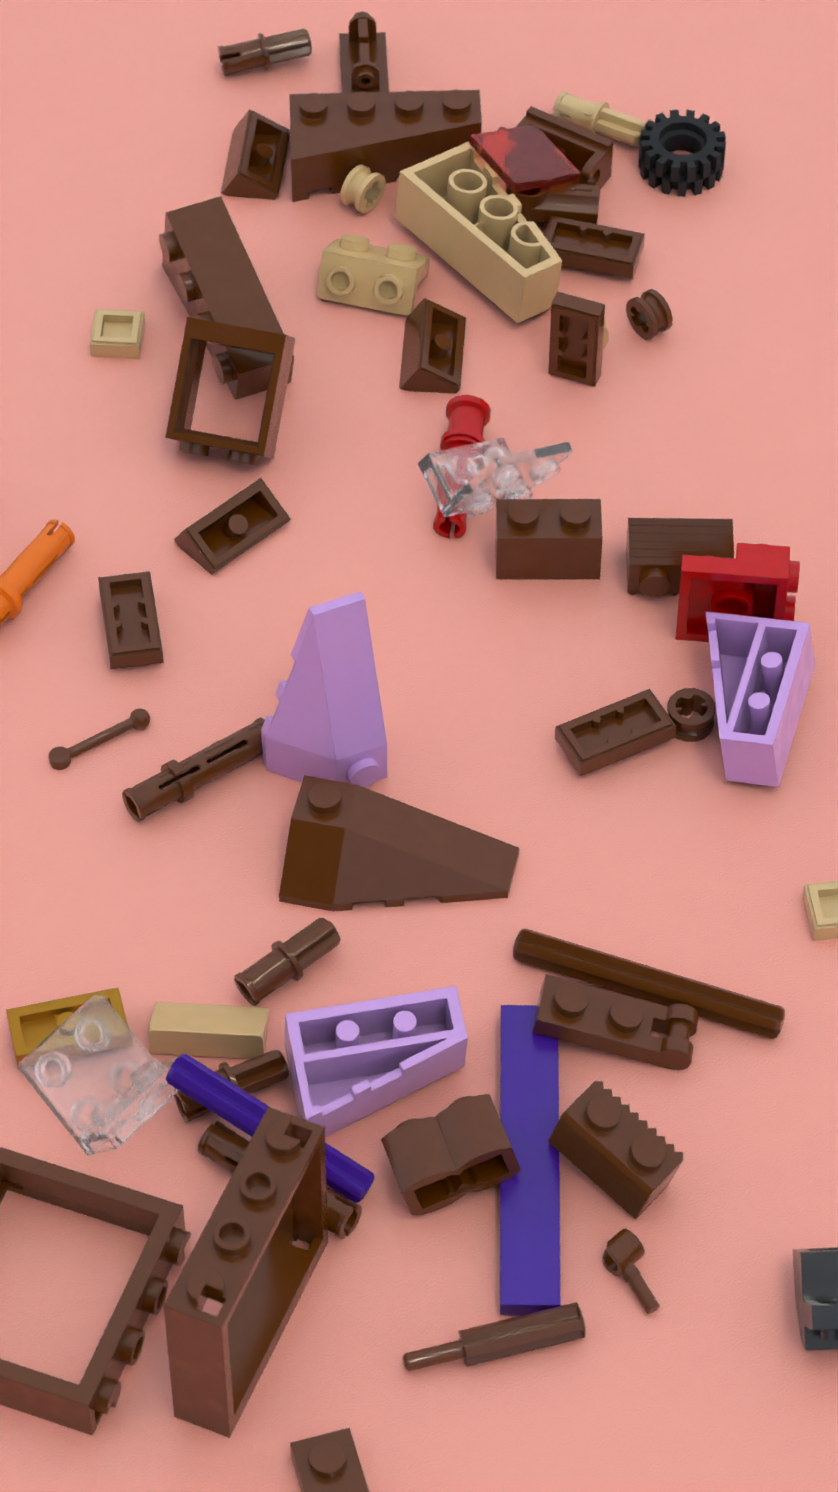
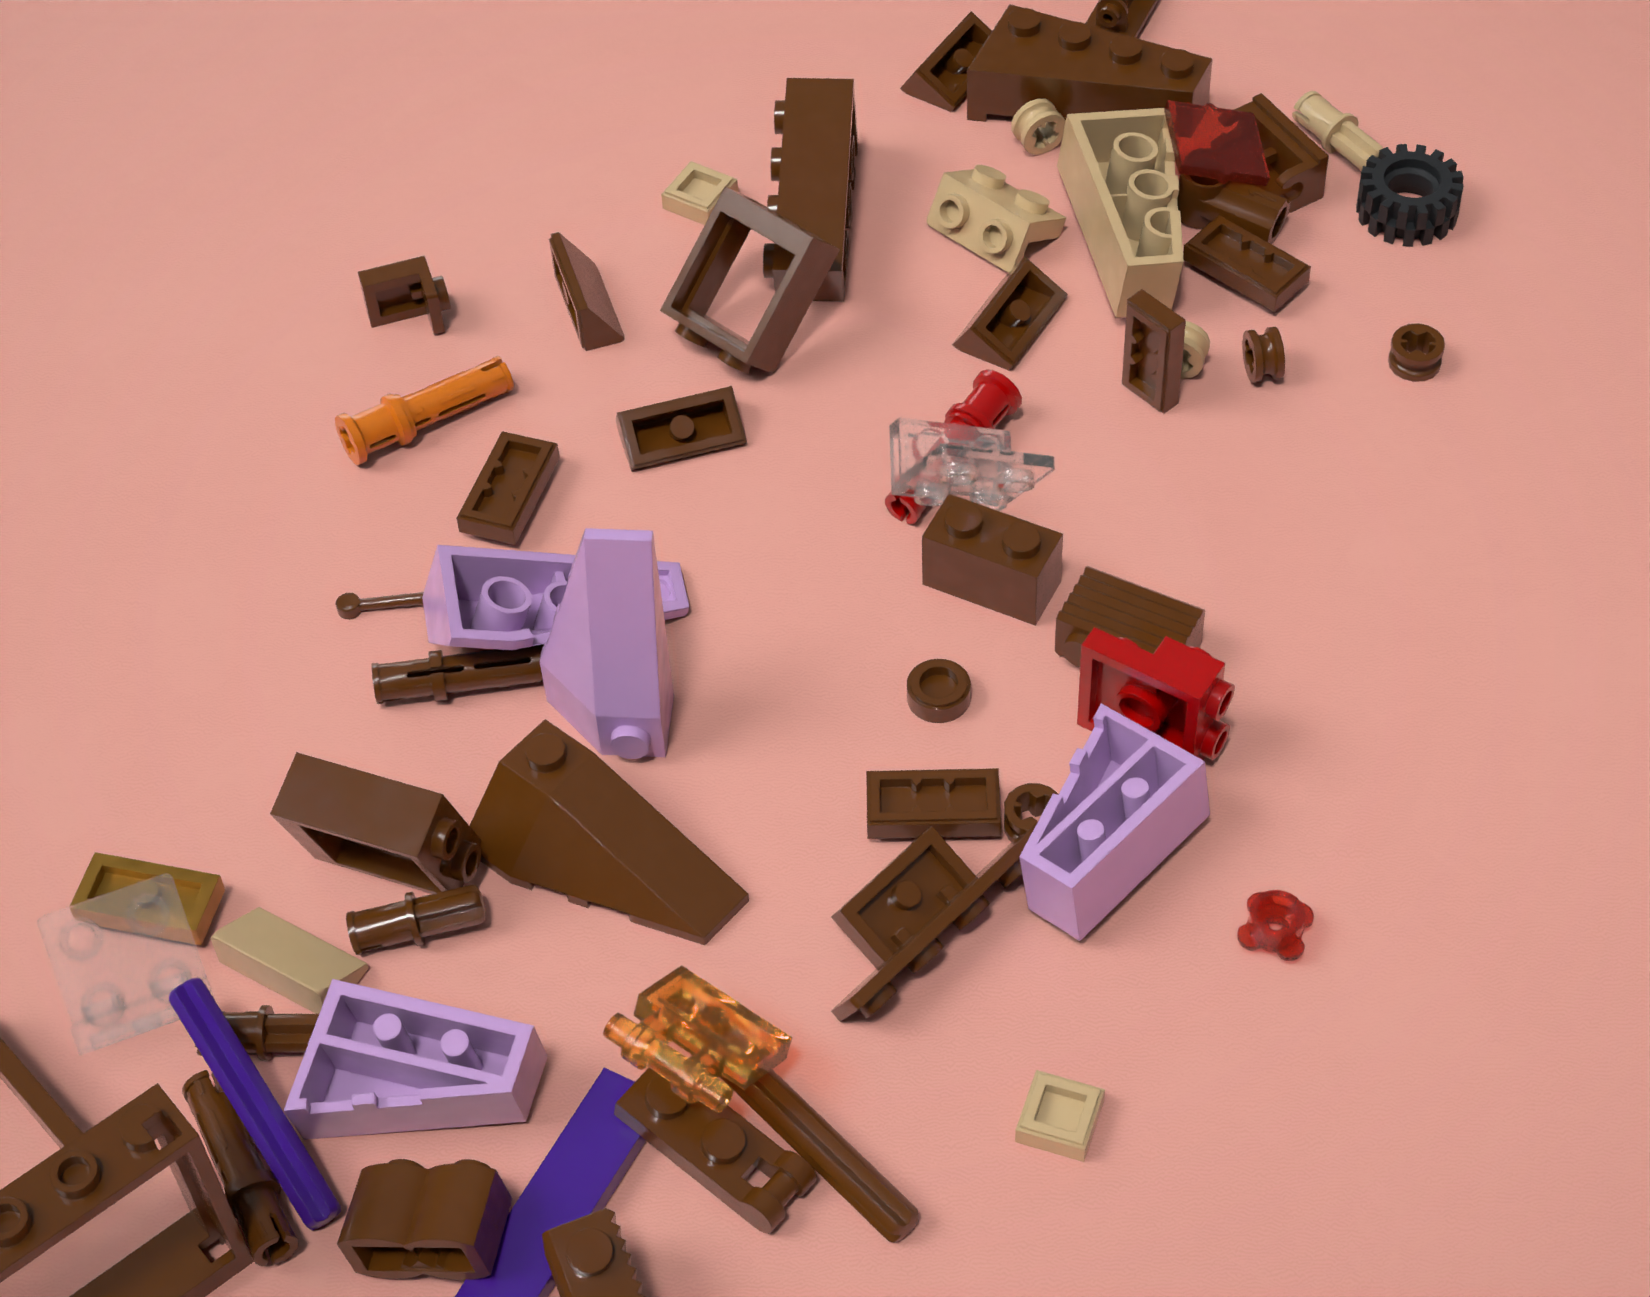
camera: 30 degrees right, 0 degrees up
(80, 450) = (584, 295): none -> reddish brown slope
(208, 697) = (510, 596): none -> lavender wedge
(232, 899) = (377, 825): none -> reddish brown window
(562, 651) = (938, 690): none -> reddish brown tile
(571, 951) = (708, 1025): none -> clear orange plate
(653, 806) = (909, 905): none -> reddish brown bracket
(749, 266) = (1417, 340): none -> reddish brown bush

